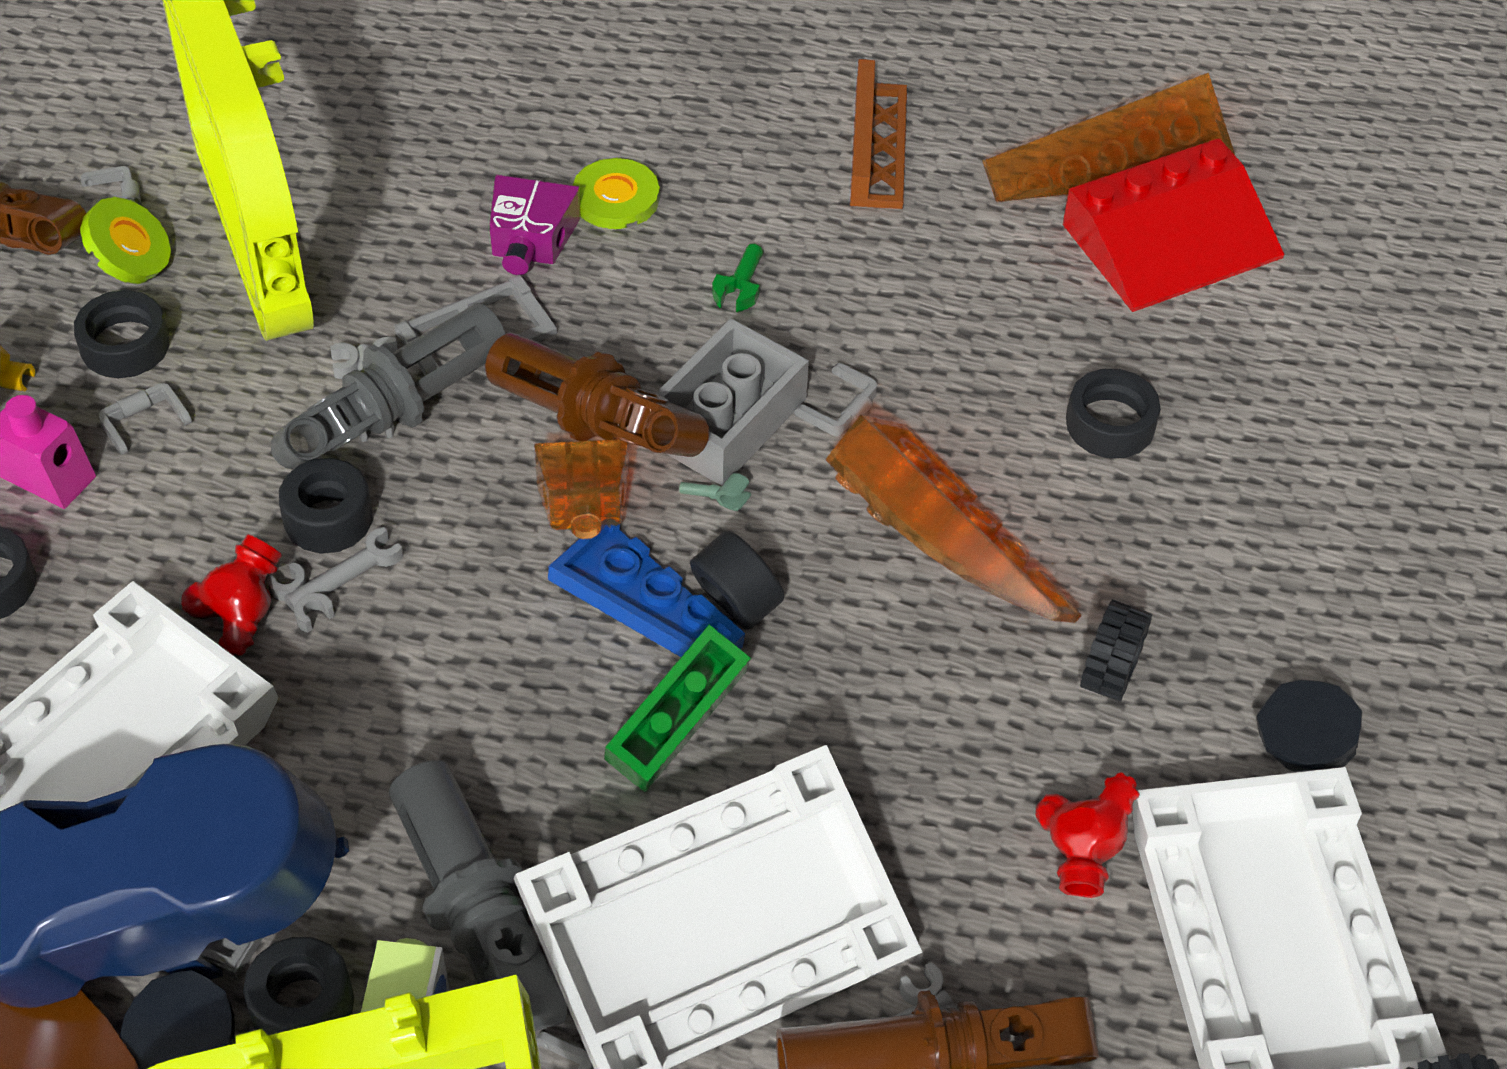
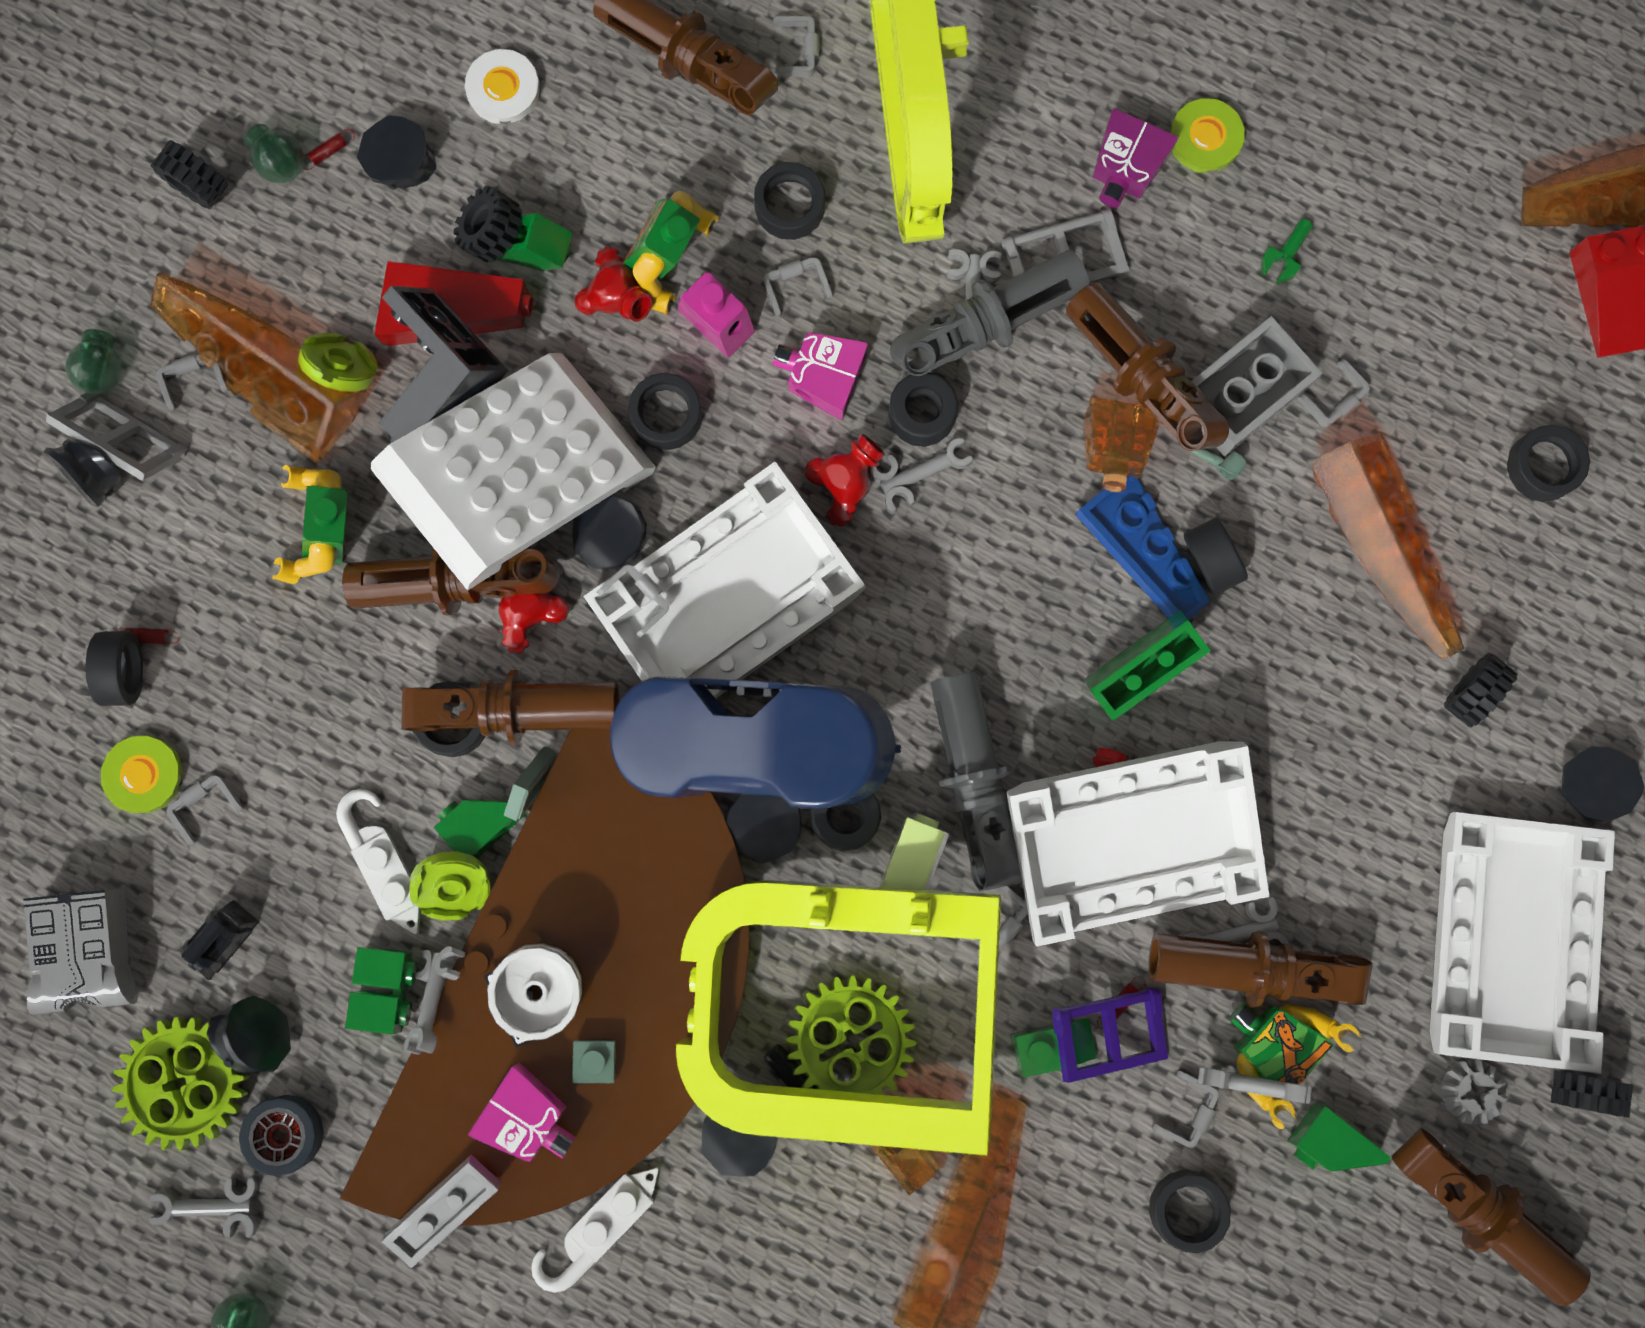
camera: 15 degrees right, 30 degrees up
(125, 240) = (804, 108): lime tile -> none
(190, 489) = (823, 370): none -> dark pink torso
(864, 136) = (1432, 125): dark orange fence -> none
(1088, 833) = (1412, 828): red animal -> none

